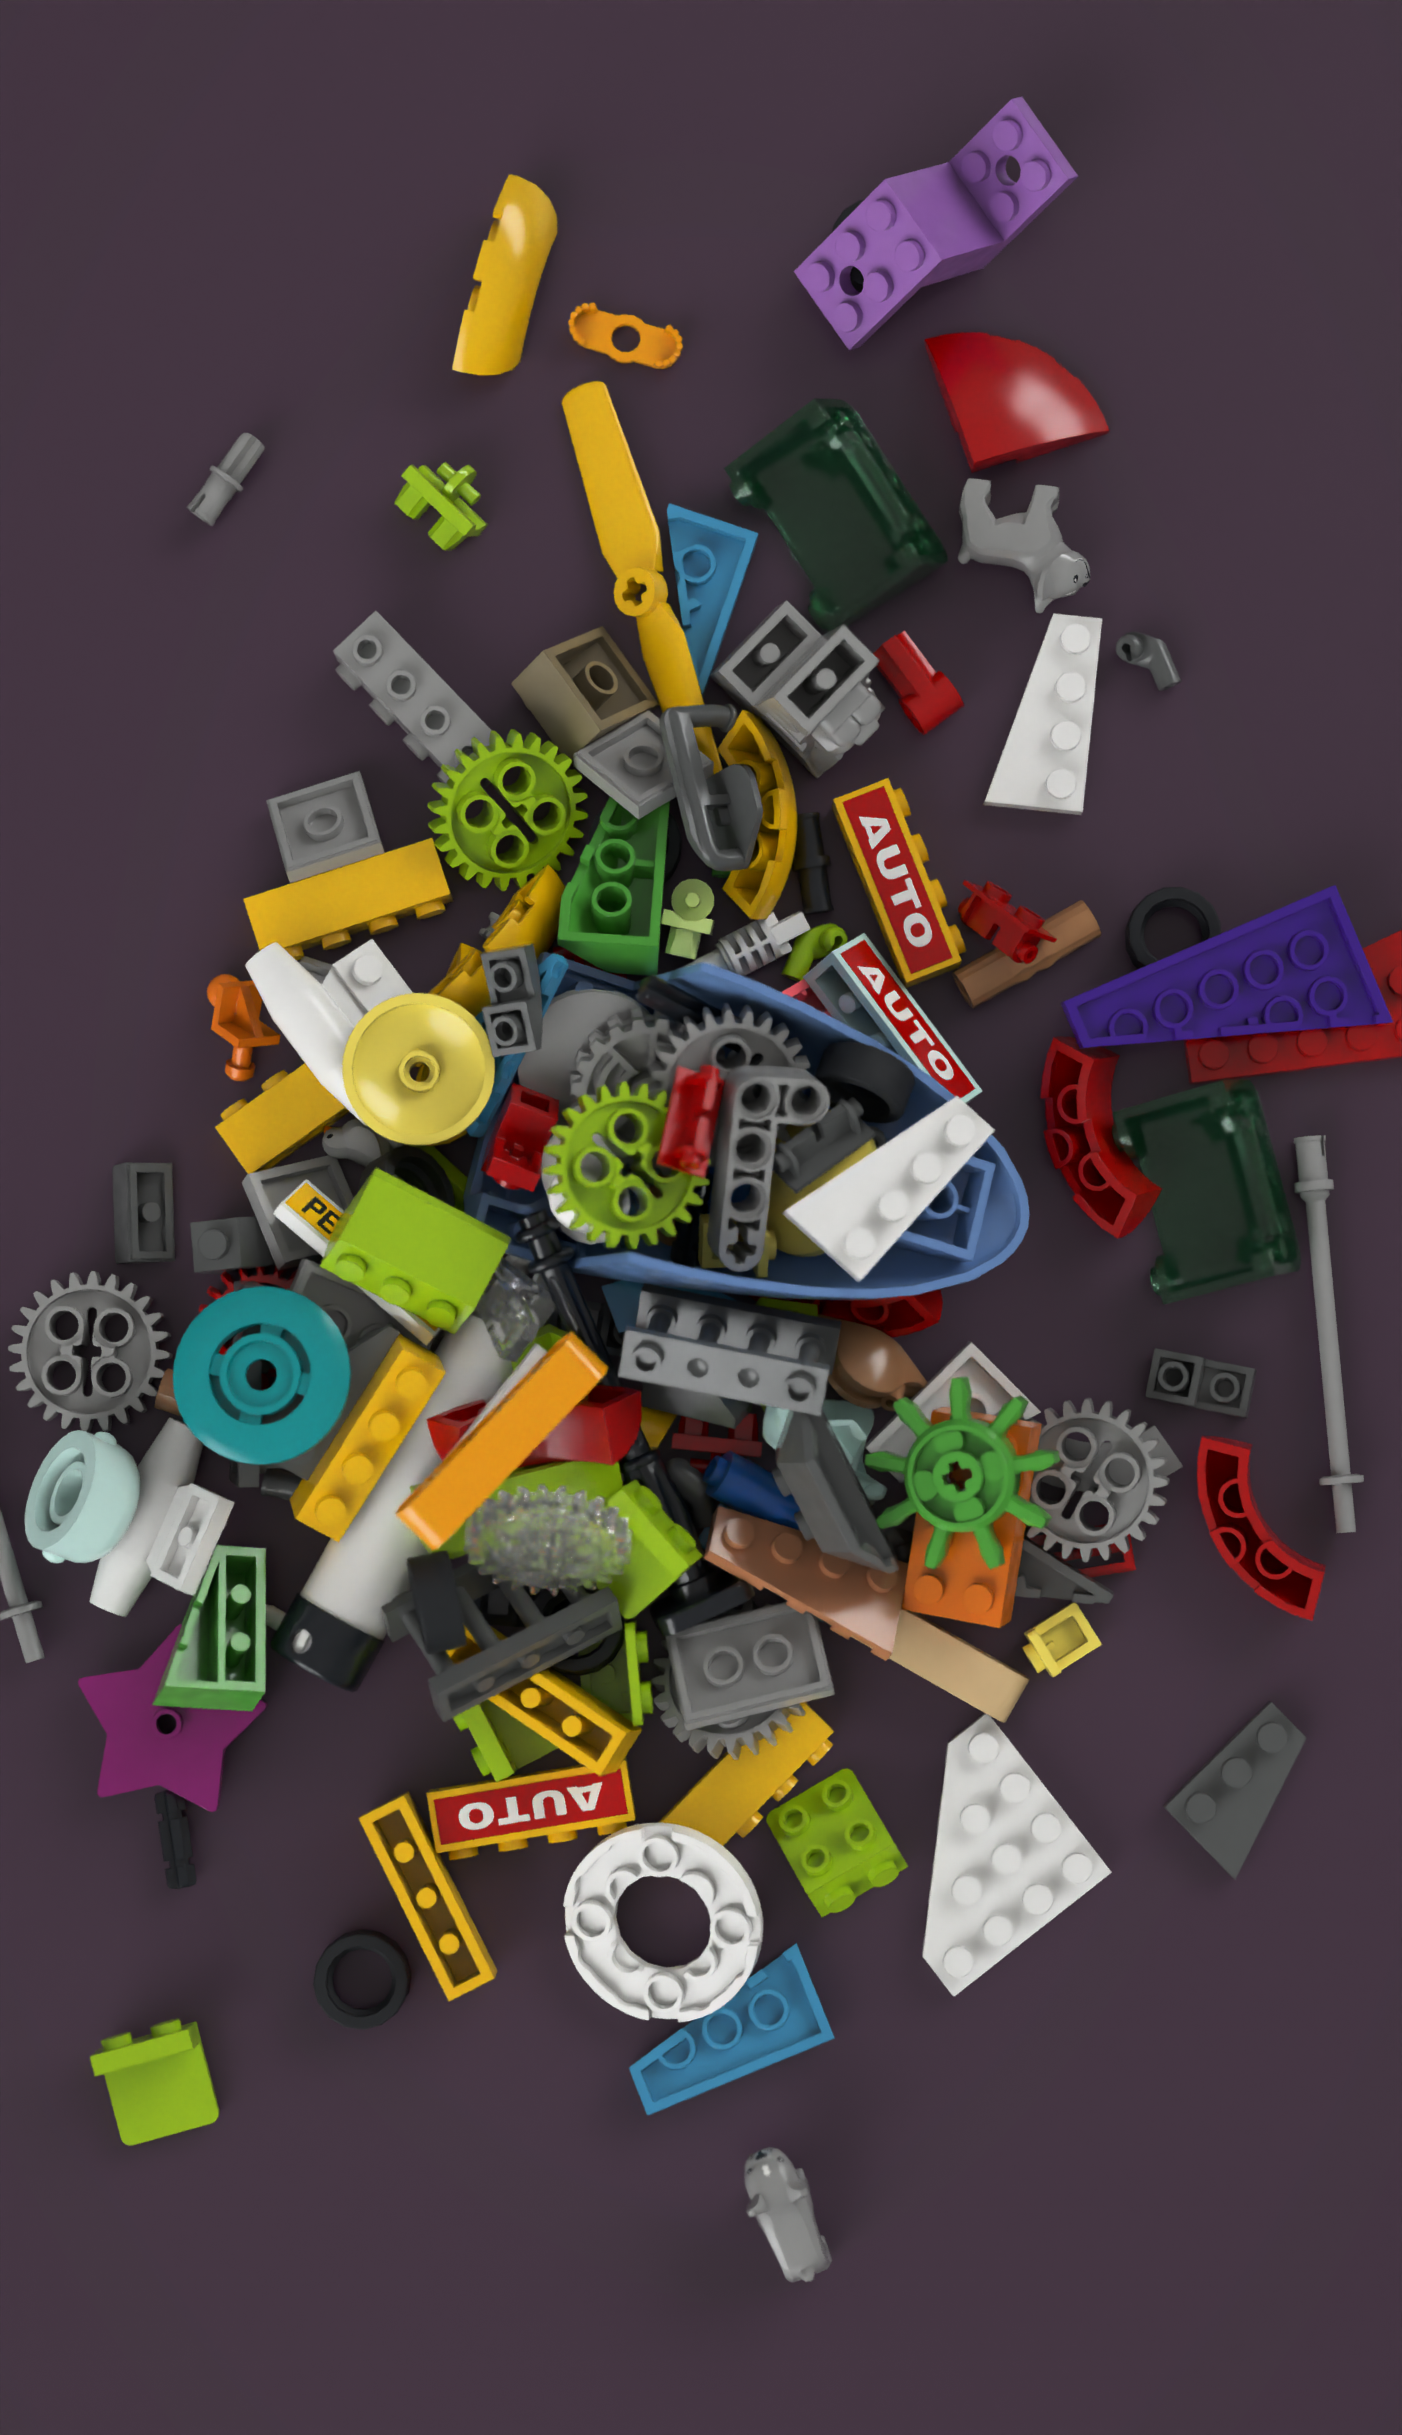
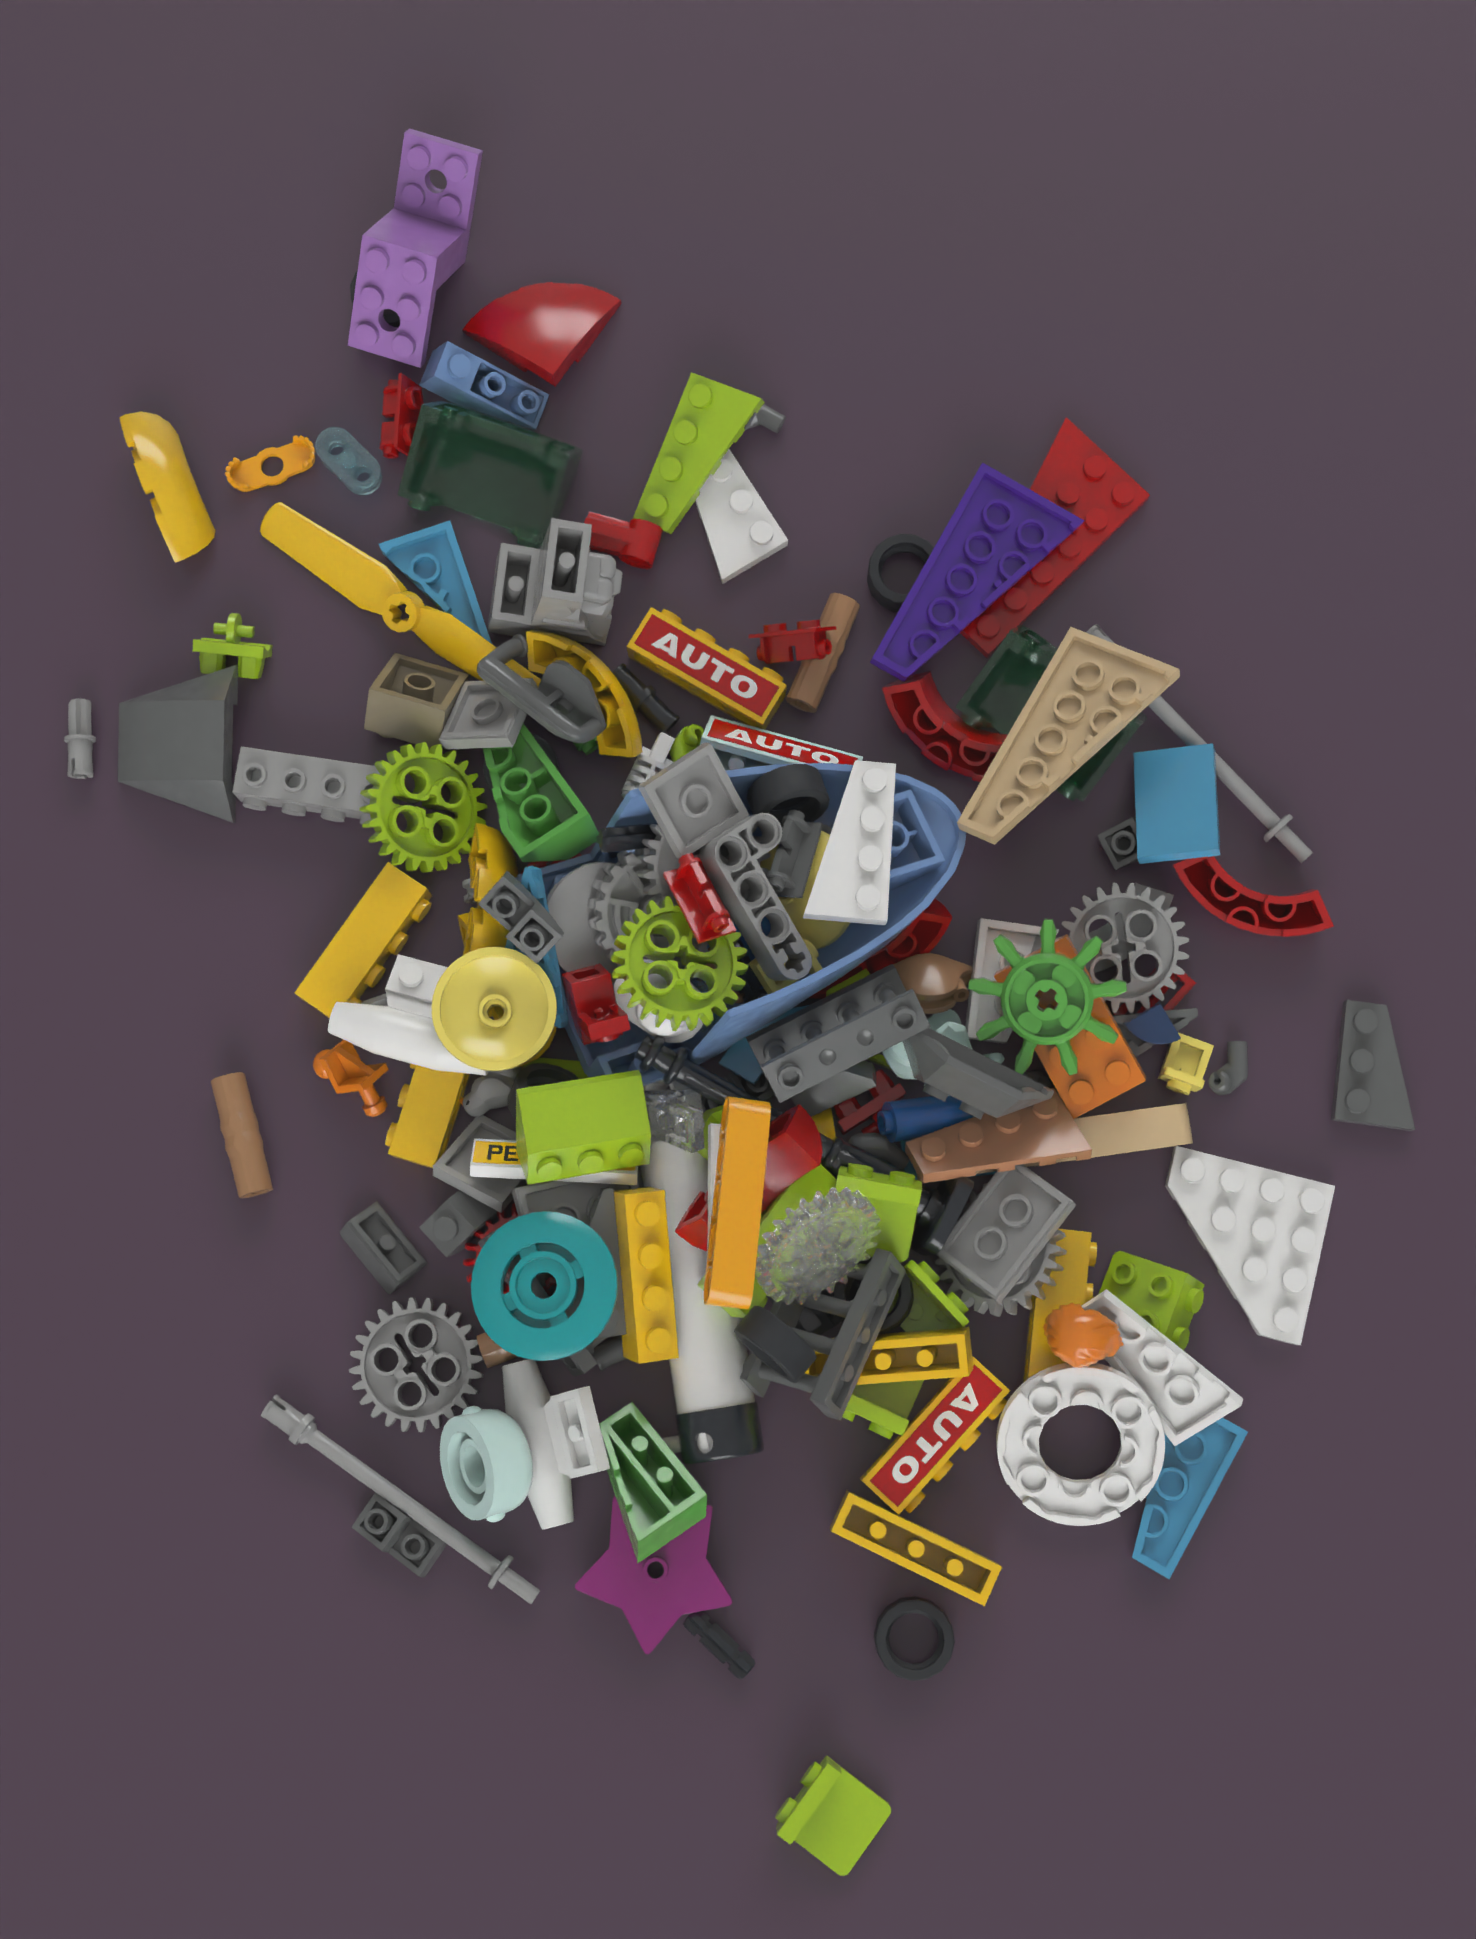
camera: 40 degrees left, 5 degrees down
(90, 998) = (241, 1135): none -> medium nougat axle
(322, 560) = (182, 743): none -> dark grey wedge
(325, 826) = (312, 908): light grey tile -> none
(691, 905) = (593, 788): yellowish green hips -> none
(705, 394) = (350, 462): none -> clear light blue plate
(739, 1823) = (1081, 1335): none -> orange hair
(761, 1017) = (693, 800): none -> light grey tile
(786, 2214) = (1310, 1572): light grey animal -> none
(798, 1942) = (1178, 1385): none -> white wing
(806, 371) = (403, 402): none -> red hinge
(898, 418) = (482, 386): none -> medium blue slope
(1022, 541) = (620, 403): light grey animal -> none
(1054, 1580) = (1153, 1026): none -> dark blue tile
(1073, 638) = (698, 438): none -> lime wing
(1101, 1685) = (1233, 1072): none -> dark grey arm
(1218, 1211) = (1071, 714): none -> tan wing
(1255, 1379) = (1176, 804): none -> dark azure tile

